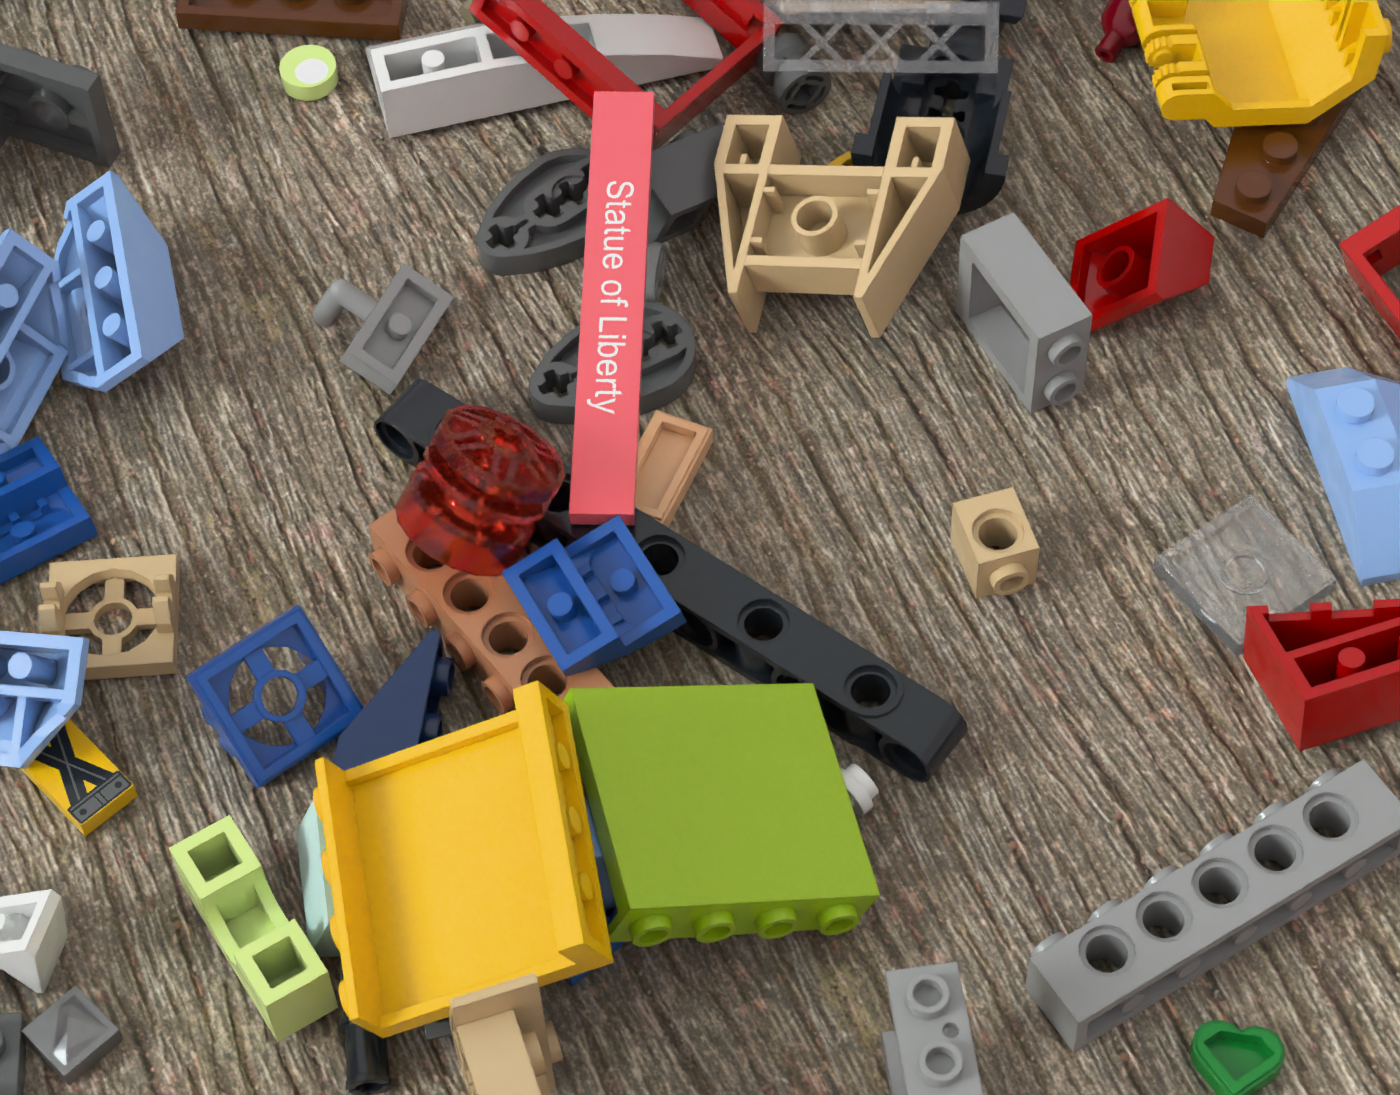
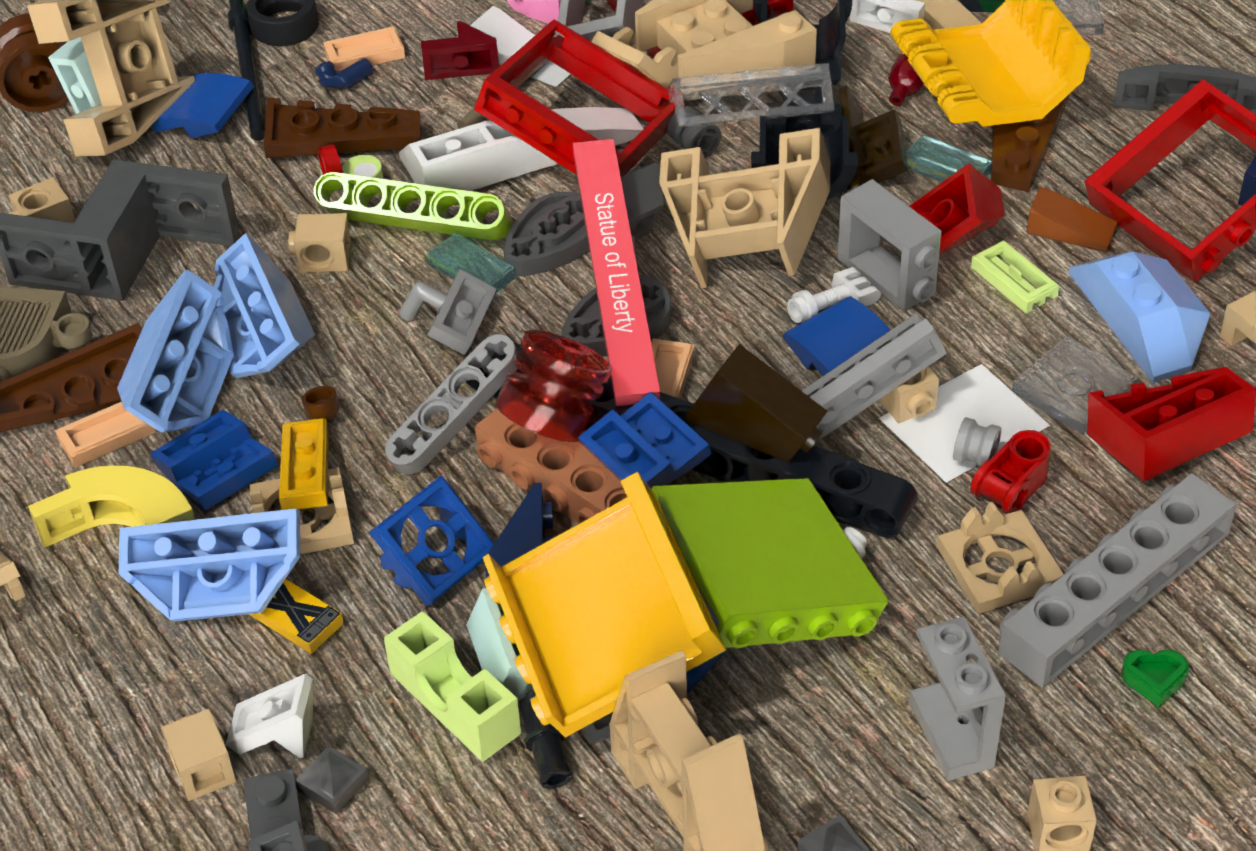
camera: 10 degrees left, 10 degrees down
(128, 545) = (304, 464): none -> yellow tile
(172, 448) = (321, 403): none -> reddish brown hinge
(225, 185) = (321, 242): none -> tan brick
(263, 56) = (329, 159): none -> red tile
(339, 133) = (427, 217): none -> lime beam
(342, 474) = (446, 399): none -> light grey beam
(429, 246) = (462, 254): none -> clear light blue tile
(761, 569) = (758, 408): none -> dark brown slope
(921, 536) = (875, 371): none -> light grey fence
(926, 459) = (835, 335): none -> blue slope
(957, 365) = (844, 284): none -> white hinge
(1044, 133) = (876, 141): none -> dark brown bracket
(1067, 888) = (1011, 585): none -> tan piece
(1073, 655) = (976, 442): none -> light grey wheel
(1083, 614) = (971, 395): none -> white sticker
(1107, 720) = (1014, 471): none -> red piece
(1150, 171) = (941, 159): none -> clear light blue tile
(1224, 417) = (1009, 278): none -> yellowish green tile
(1307, 301) = (1069, 221): none -> dark orange slope

